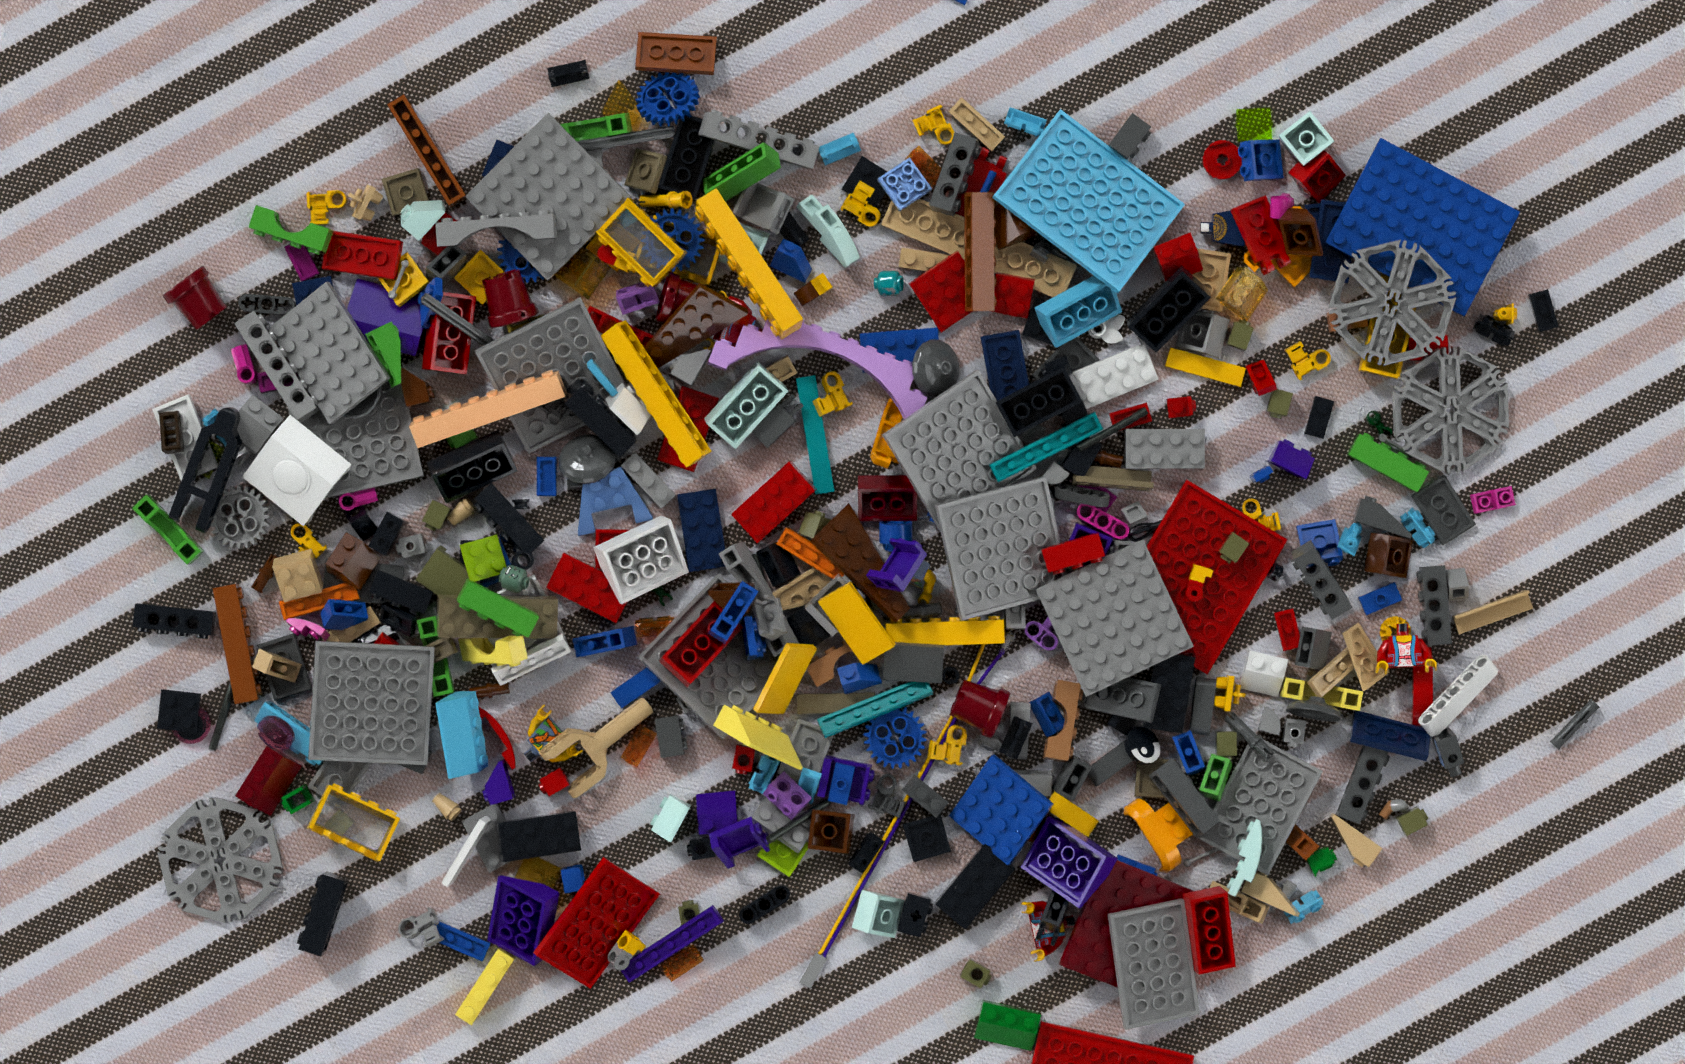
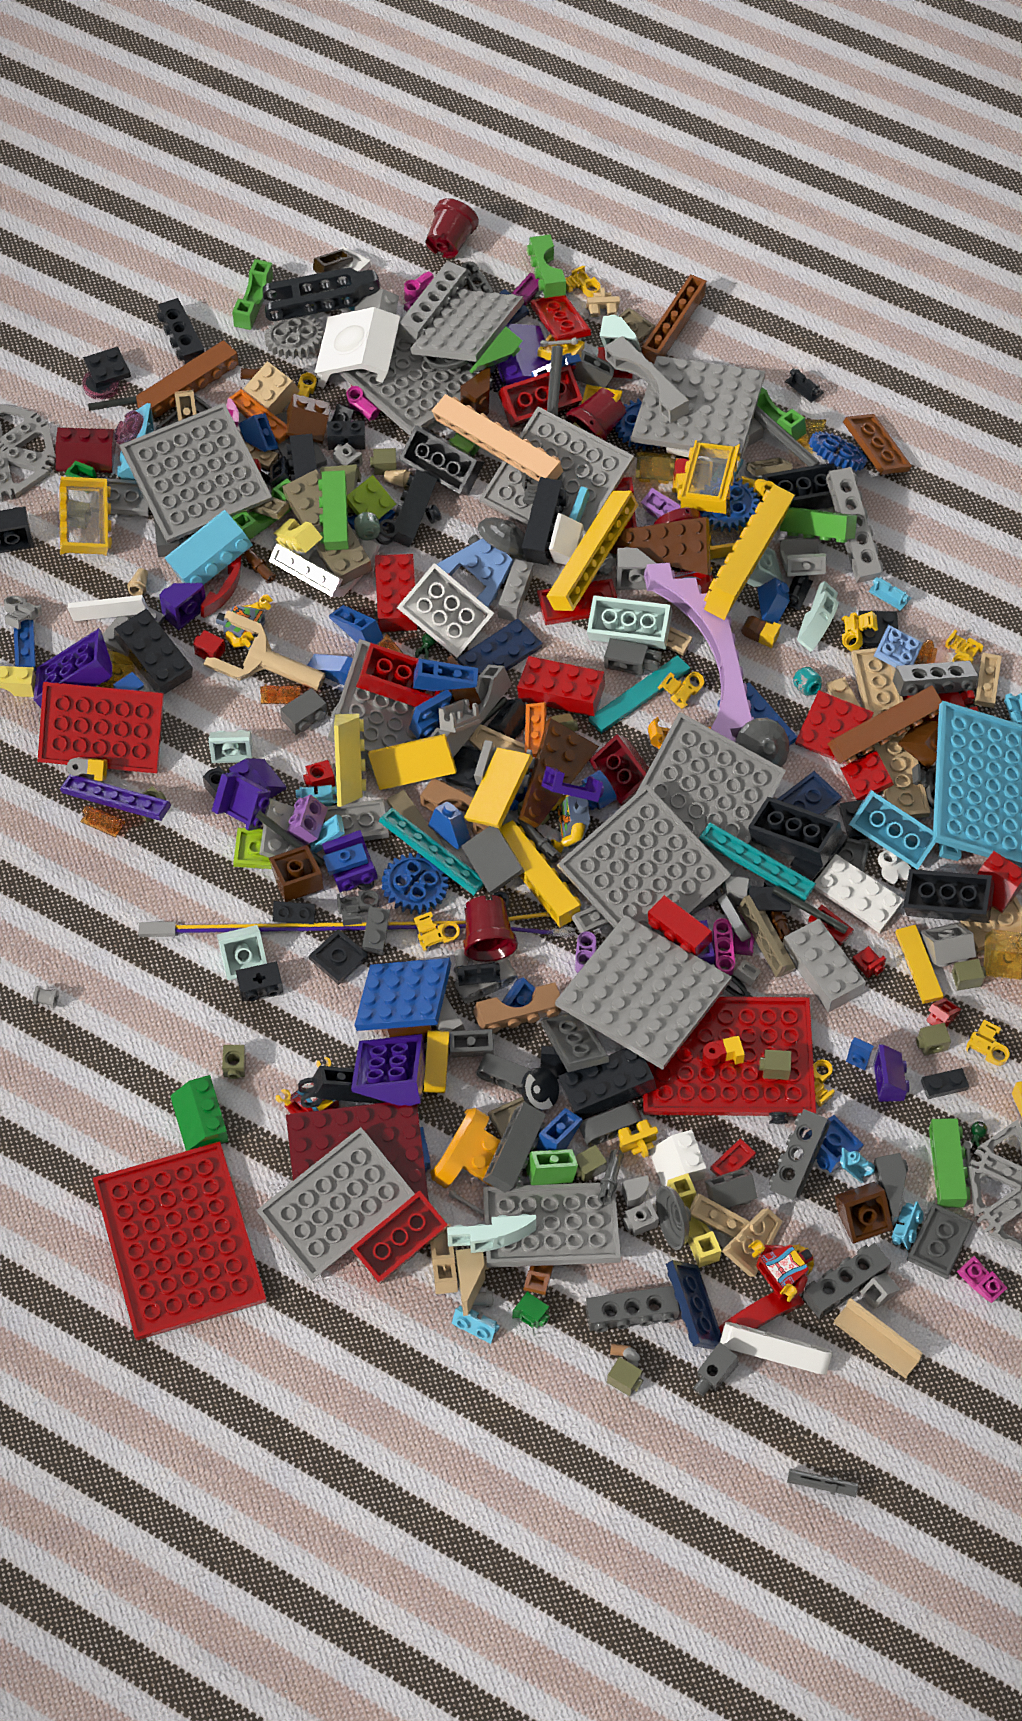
camera: 55 degrees right, 30 degrees down
(546, 476) = (467, 521): blue plate -> none
(757, 910) = (201, 864): black beam -> none
(974, 886) = (316, 1017): black brick -> none
(1357, 844) = (569, 1336): tan slope -> none
(1380, 598) = (817, 1229): blue plate -> none

